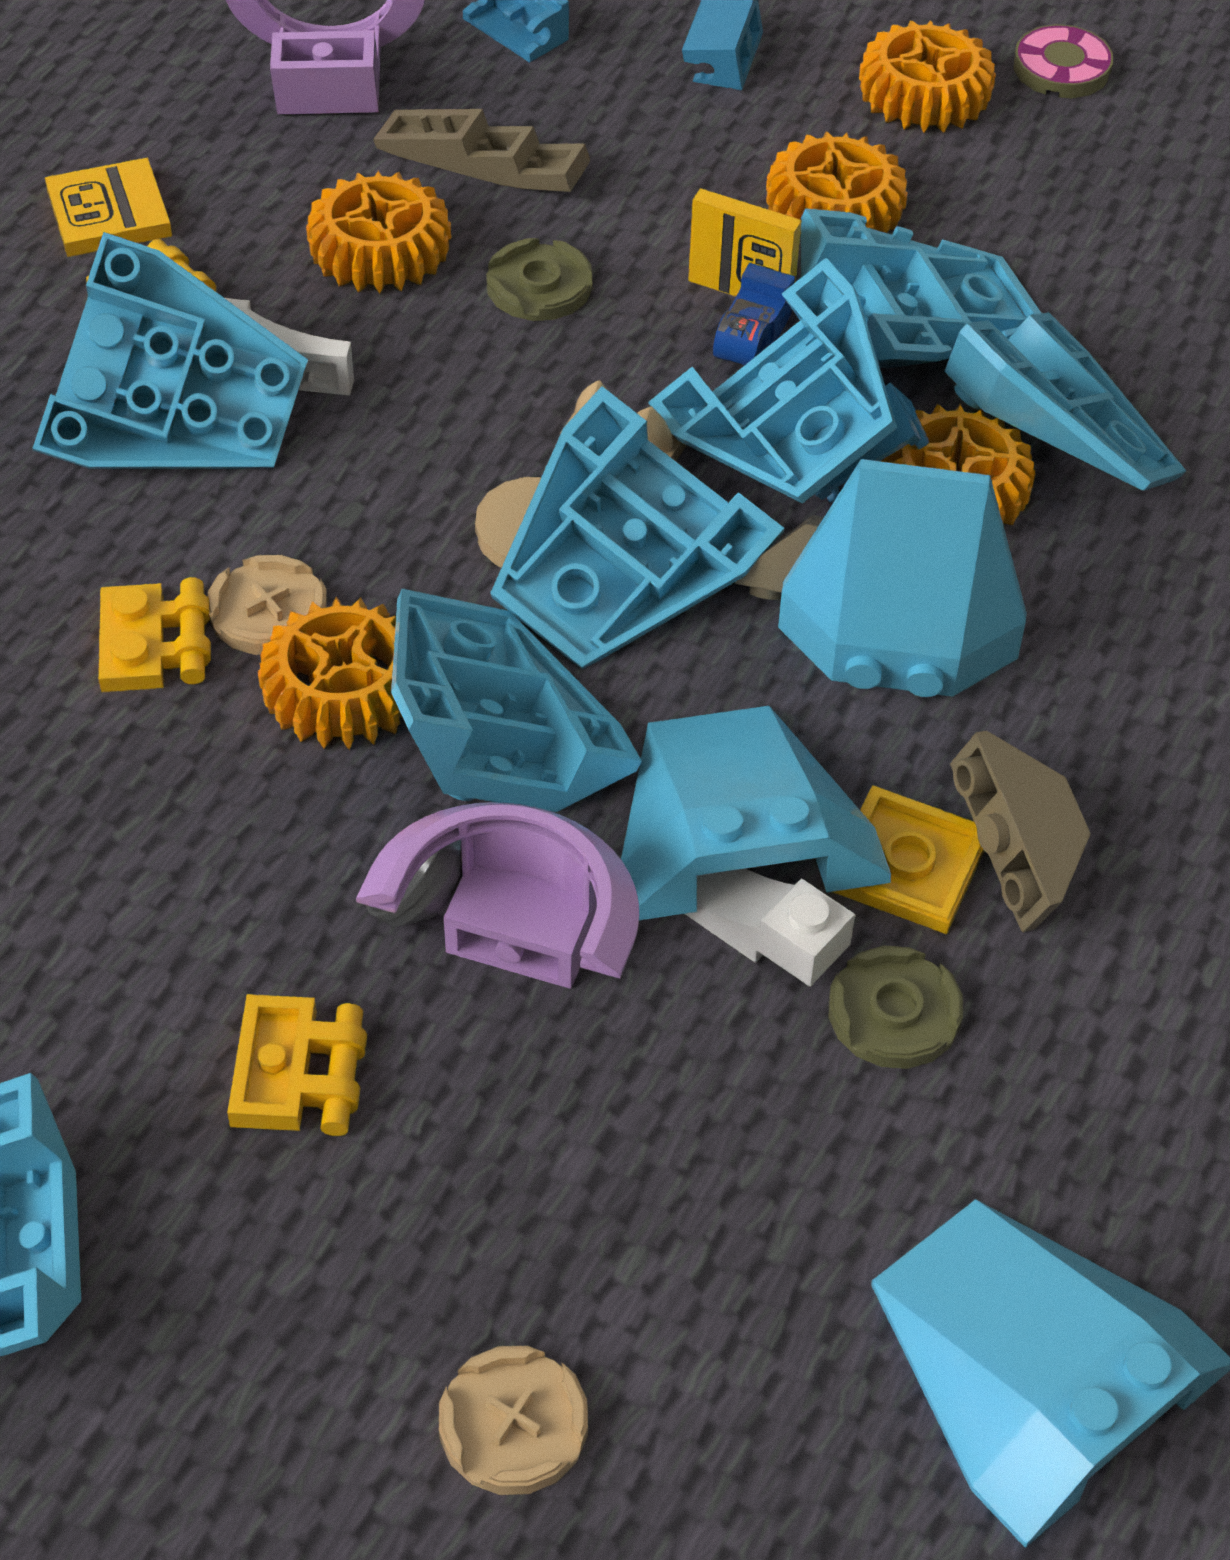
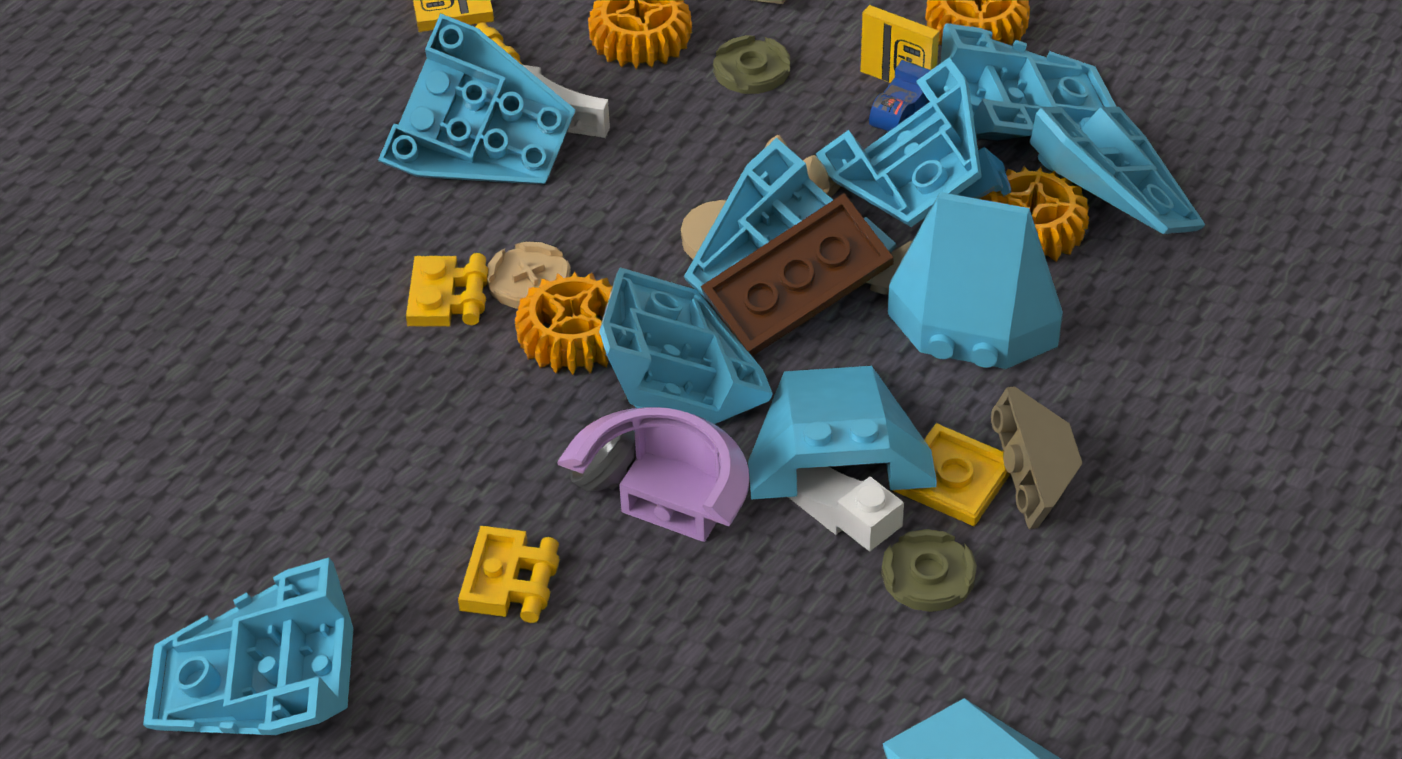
camera: 10 degrees right, 5 degrees down
(653, 582) = (797, 275): none -> reddish brown plate

